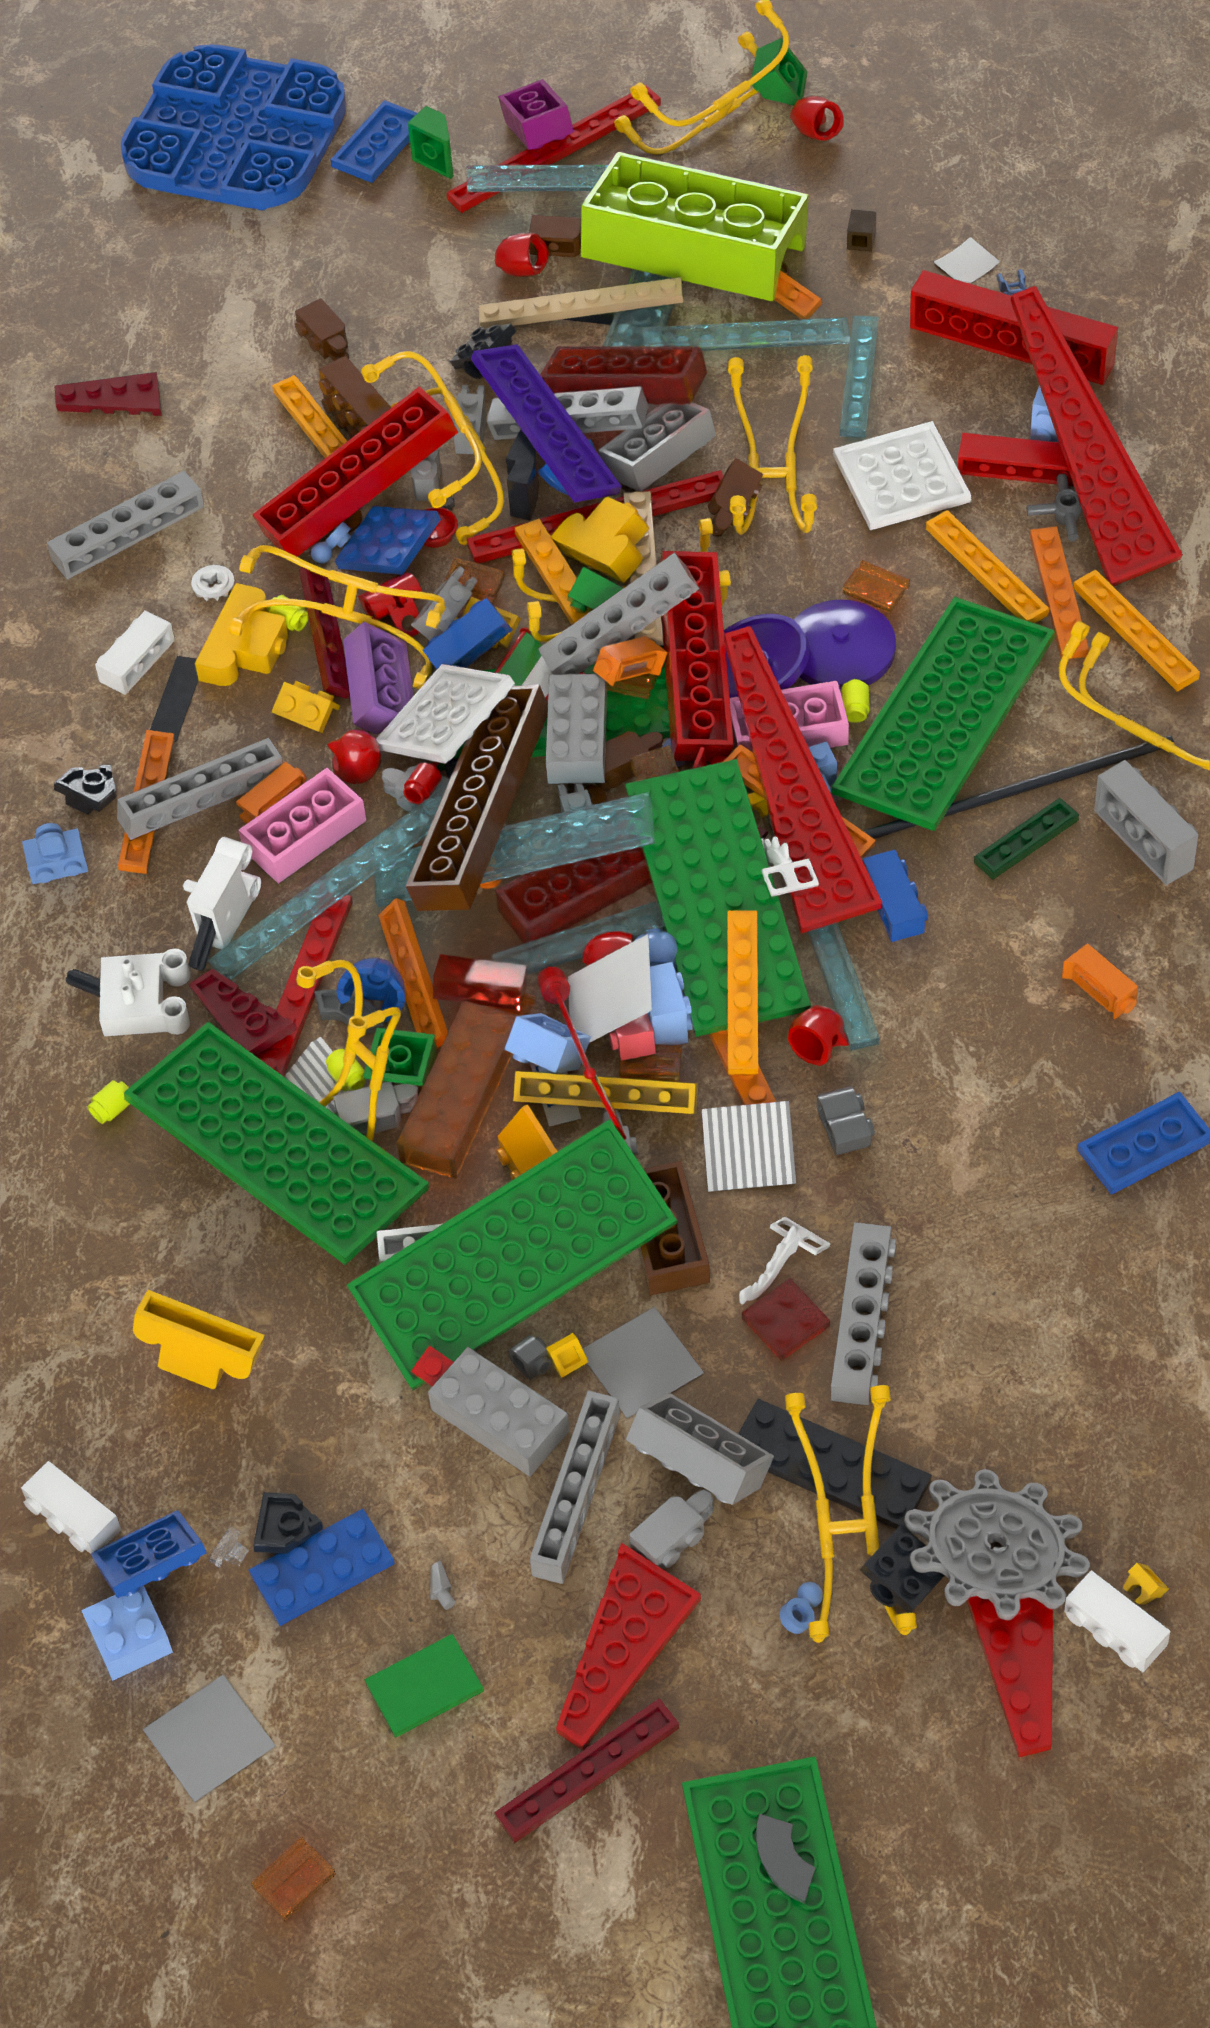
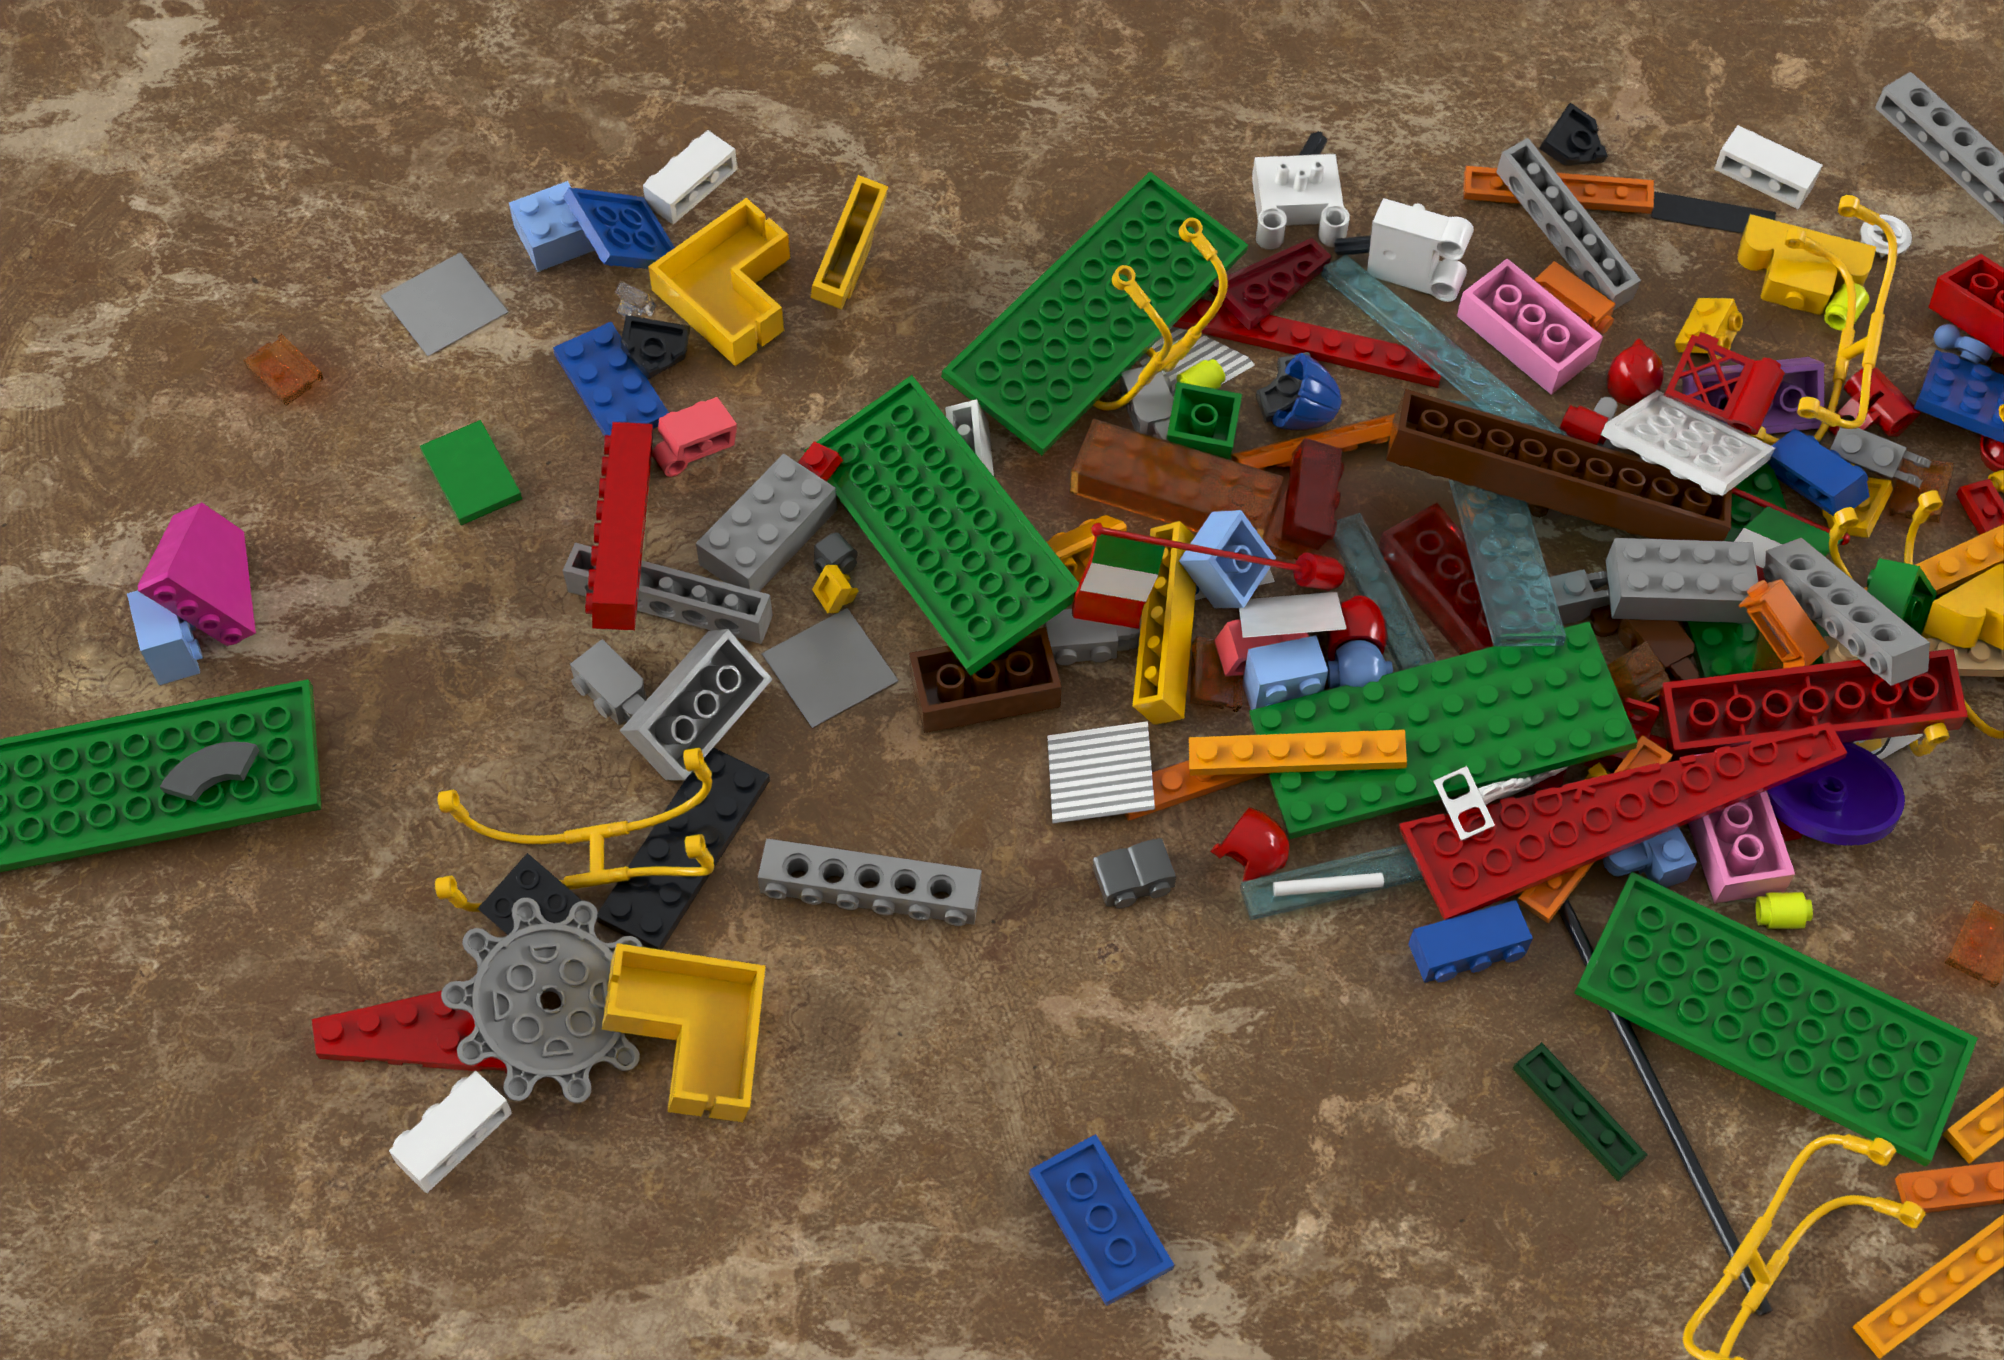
camera: 85 degrees right, 5 degrees up
(54, 854) = (1476, 113): medium blue brick -> none
(108, 1102) = (1163, 172): neon yellow brick -> none
(216, 1475) = (715, 279): none -> yellow piece
(325, 635) = (1824, 341): dark red plate -> none
(393, 1480) = (693, 435): none -> coral hinge
(395, 672) = (1750, 396): none -> red piece
(440, 1586) = (576, 483): light grey bar -> none
(513, 1514) = (621, 527): none -> red brick
(563, 1893) = (203, 574): none -> dark pink slope
(586, 1770) = (356, 611): dark red plate -> none
(625, 1932) = (164, 640): none -> light blue brick
(628, 1632) = (497, 646): red wing -> none
(785, 1319) = (872, 808): clear red plate -> none
(788, 1246) = (958, 804): white piece -> none
(798, 1611) = (526, 820): medium blue plate -> none
(846, 642) = (1881, 902): dark purple dish -> none
(852, 983) = (1328, 884): none -> white bar
(1008, 1415) = (705, 1007): none -> yellow piece
(1101, 980) = (1345, 1183): orange window -> none
(1146, 822) = (1600, 1252): light grey brick -> none
(1151, 1584) = (497, 1169): yellow tile -> none

